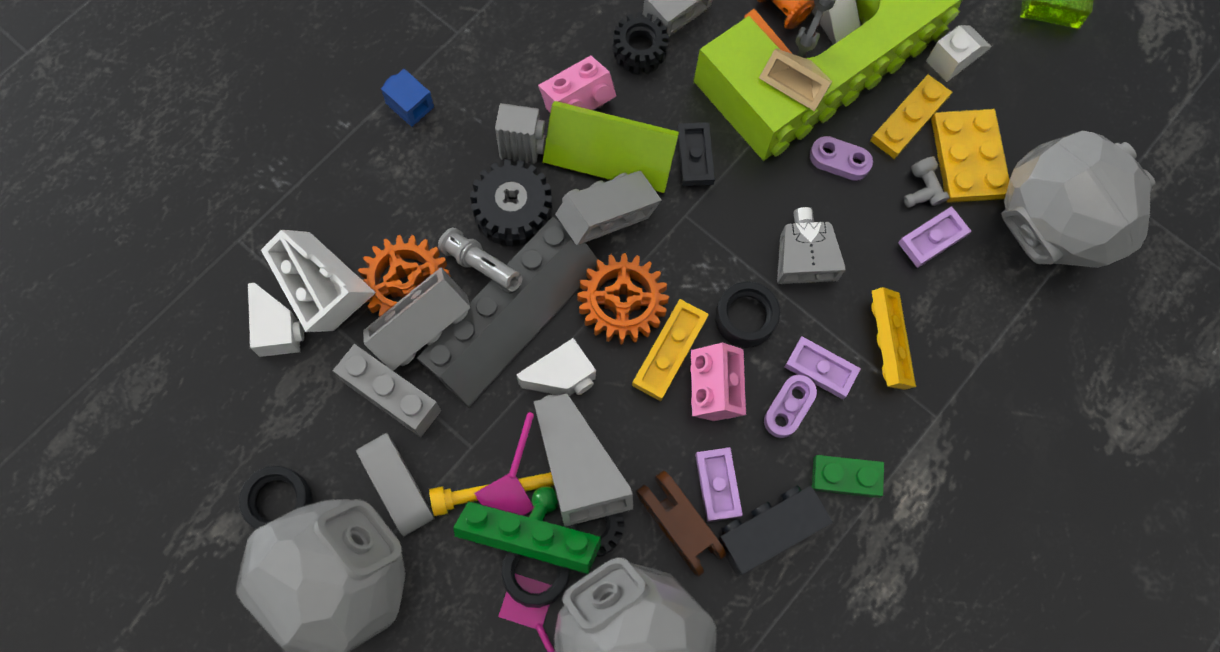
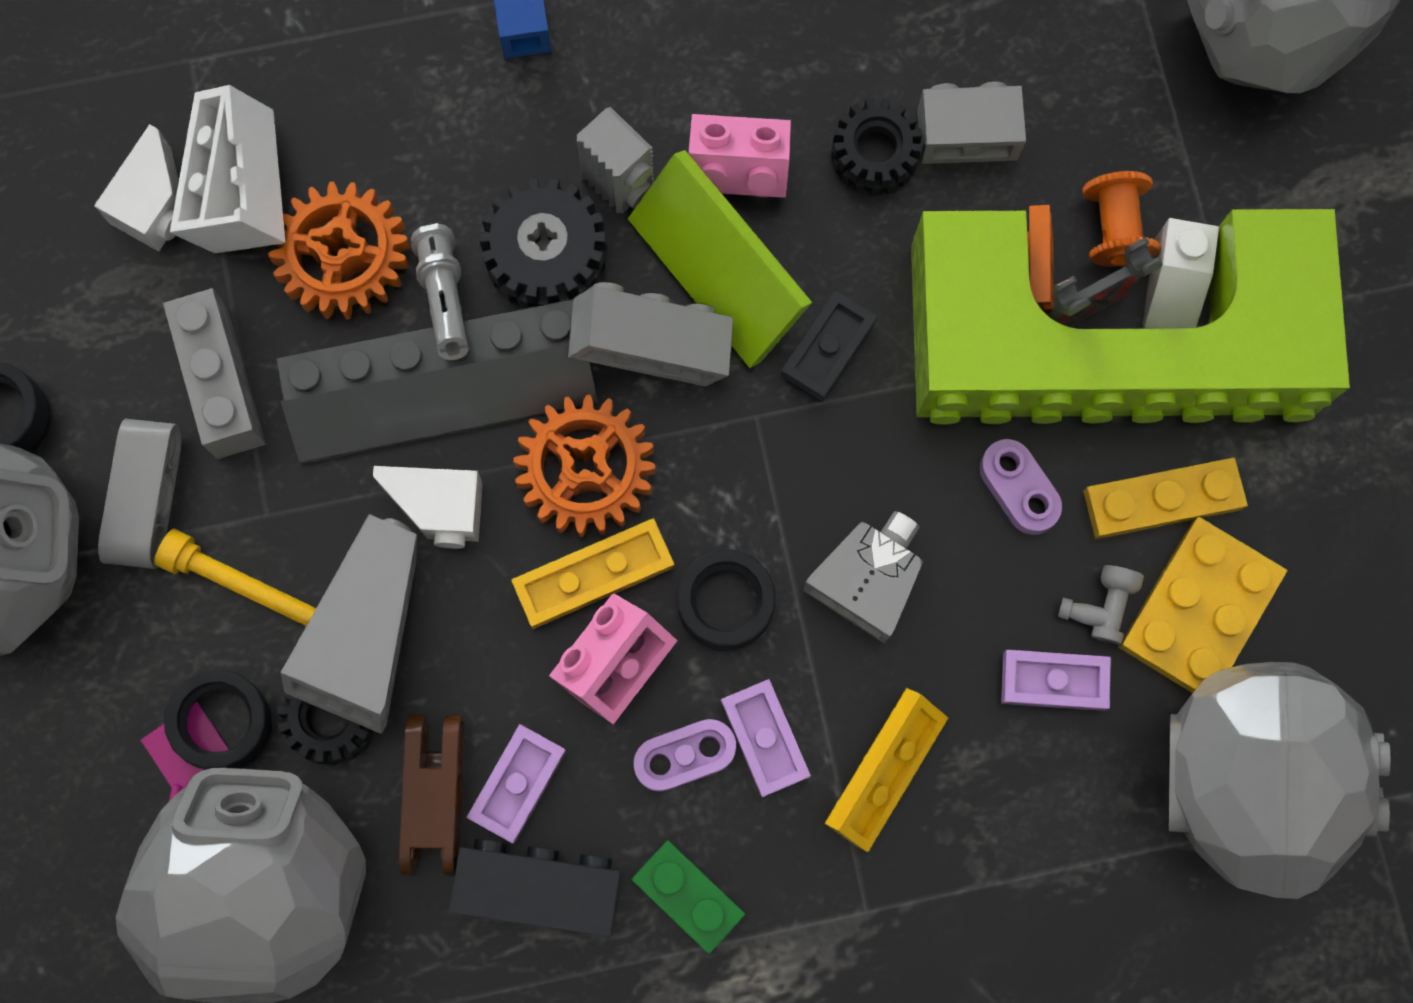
camera: 40 degrees right, 5 degrees up
(416, 320) = (307, 312): light grey brick -> none
(507, 491) = (254, 605): dark pink piece -> none
(530, 534) = (236, 671): green plate -> none
(796, 78) = (1015, 338): tan slope -> none
(957, 51) = (1306, 455): white slope -> none

